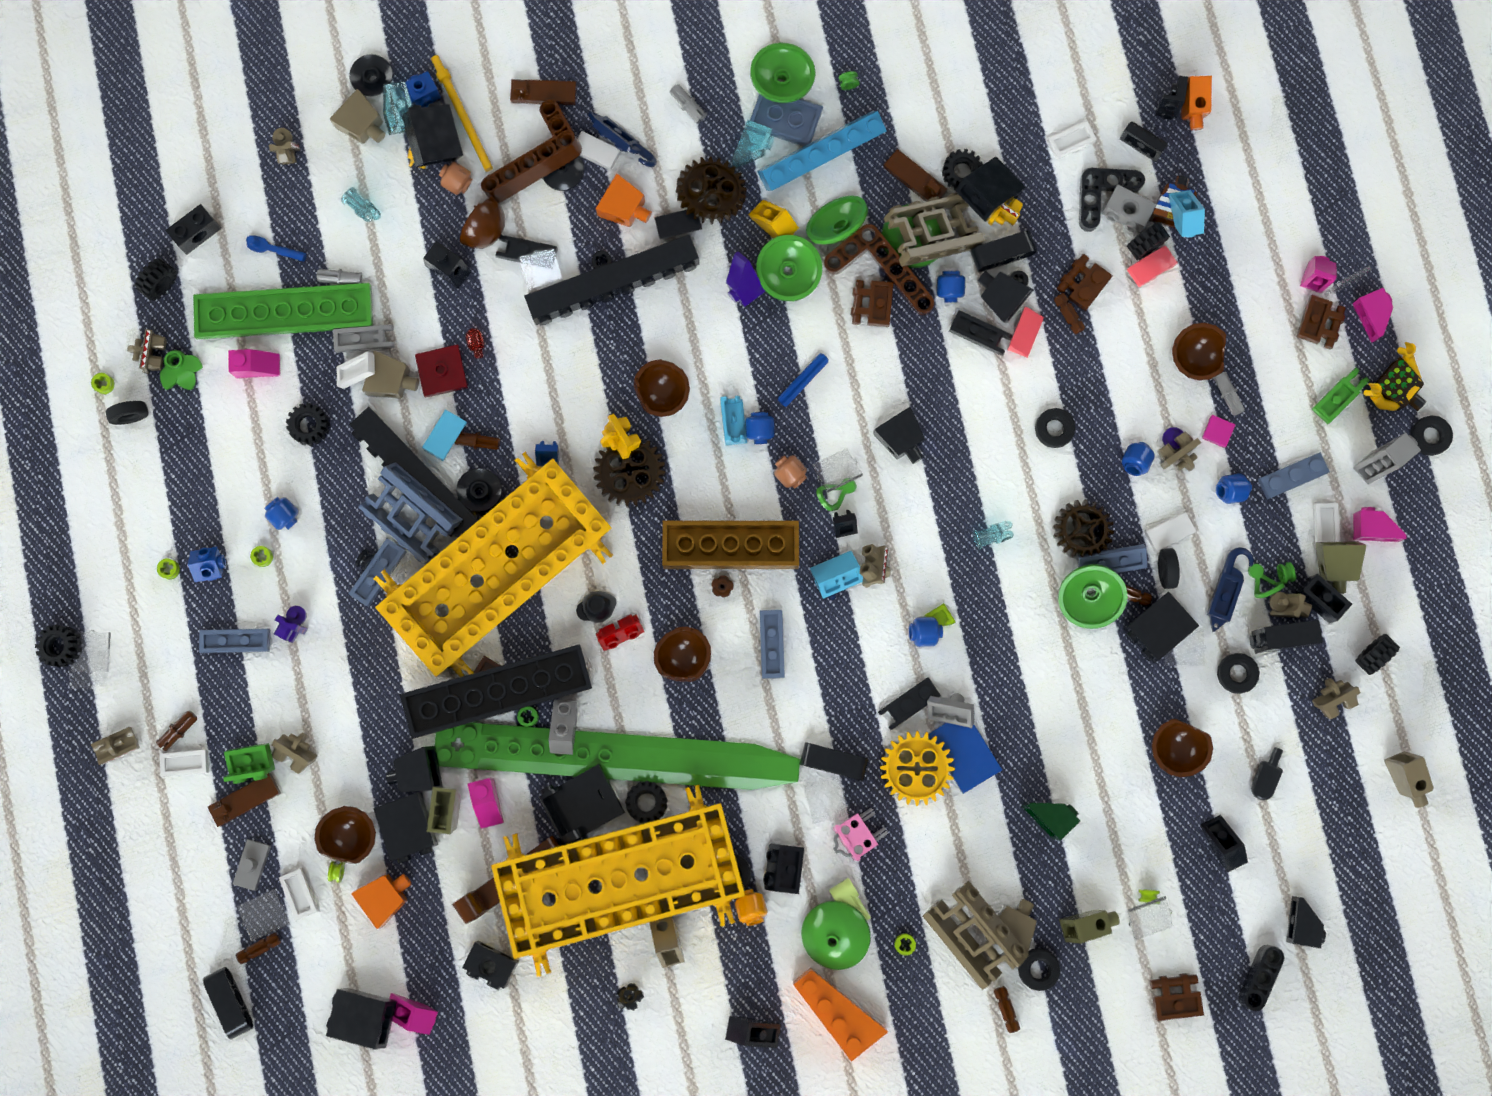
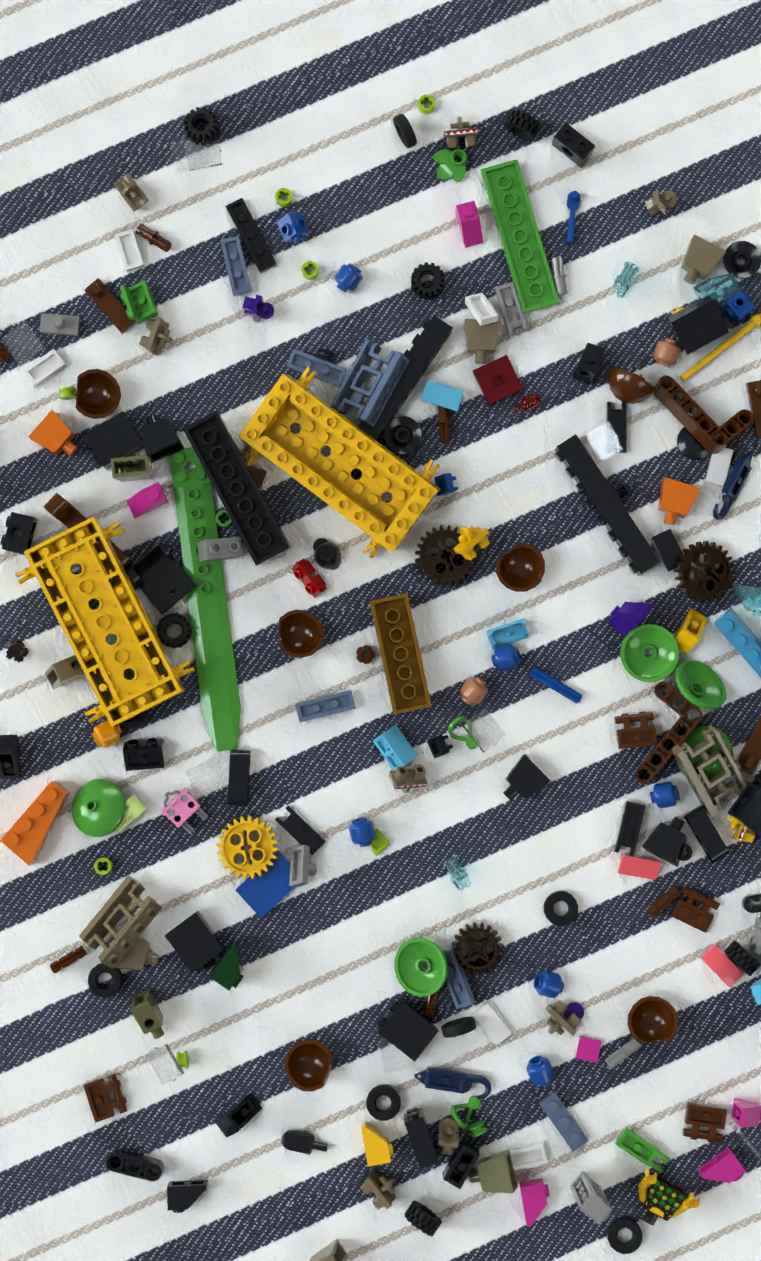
camera: 75 degrees right, 5 degrees up
(203, 616) = (251, 235): none -> black tile
(1015, 852) = (195, 942): none -> black brick
(1287, 690) = (376, 1146): none -> yellow slope

